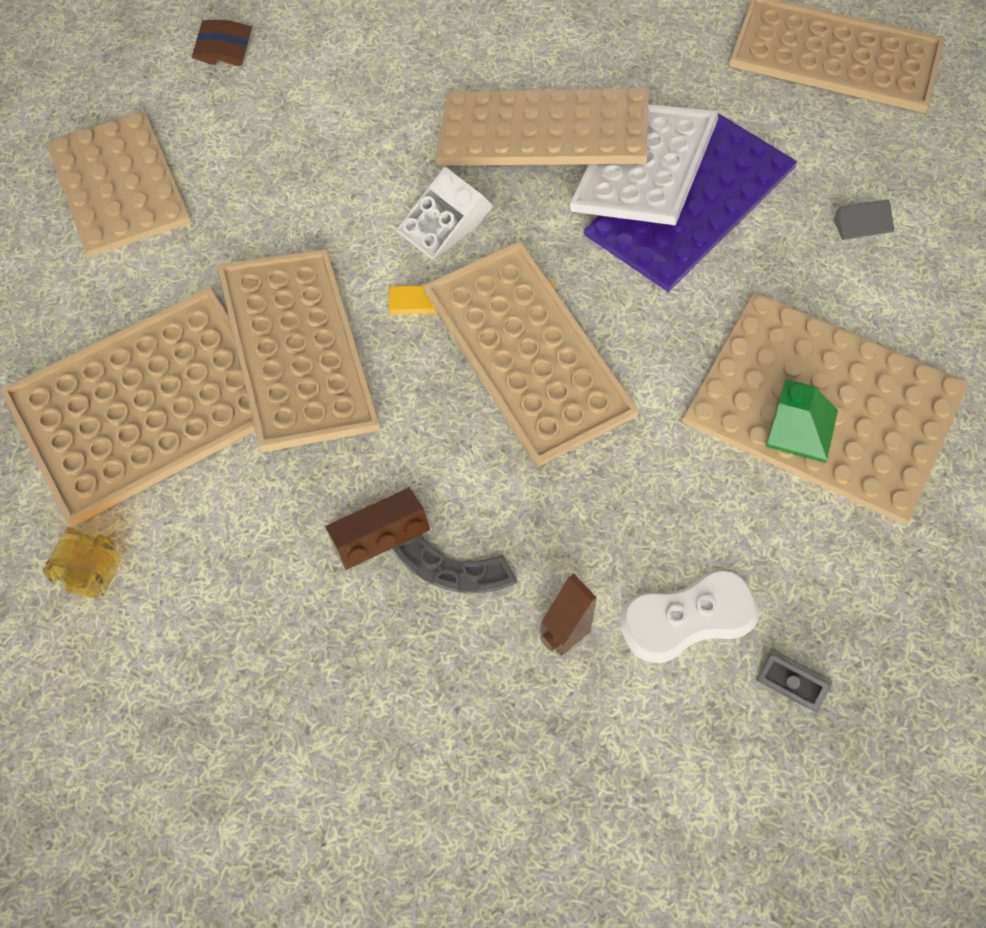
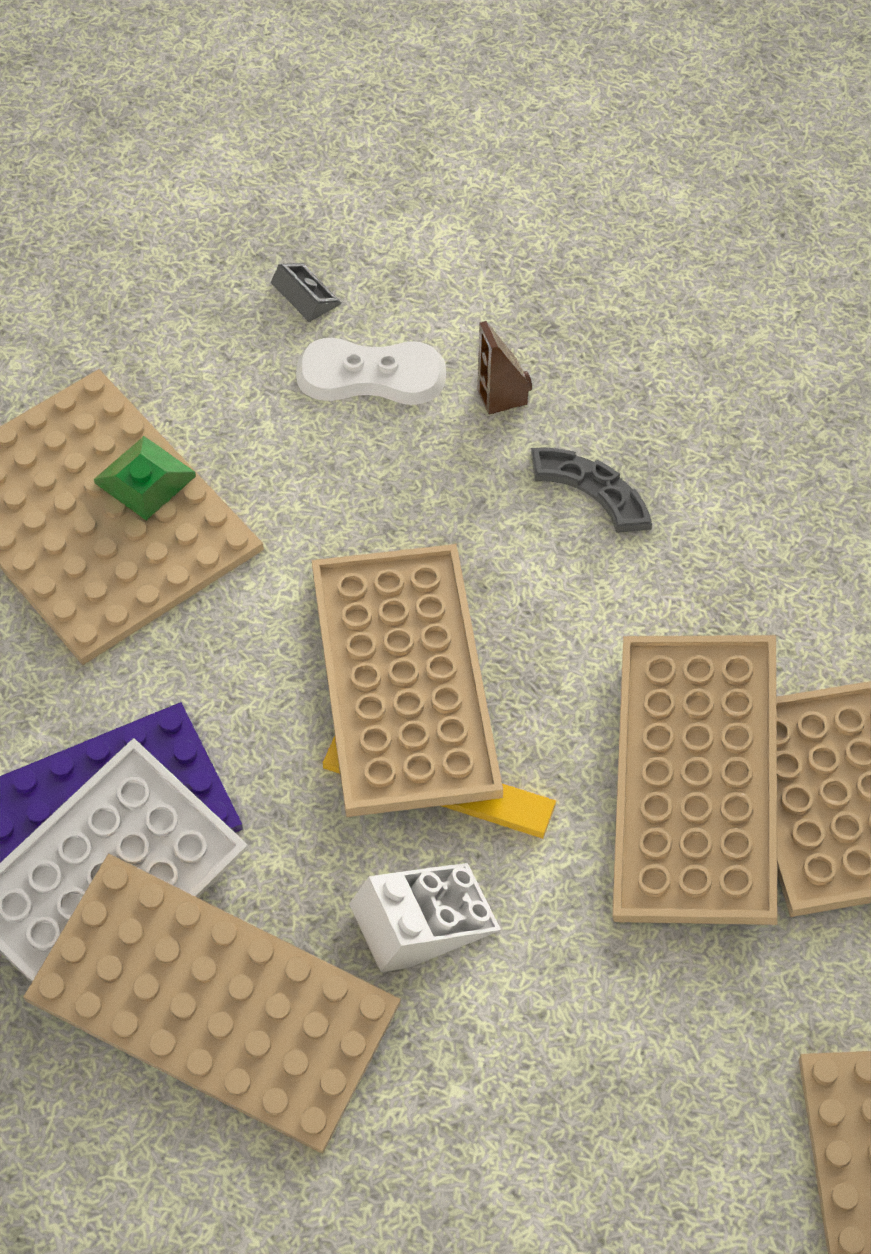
camera: 160 degrees left, 5 degrees down
(377, 528) = (662, 530): reddish brown brick -> none

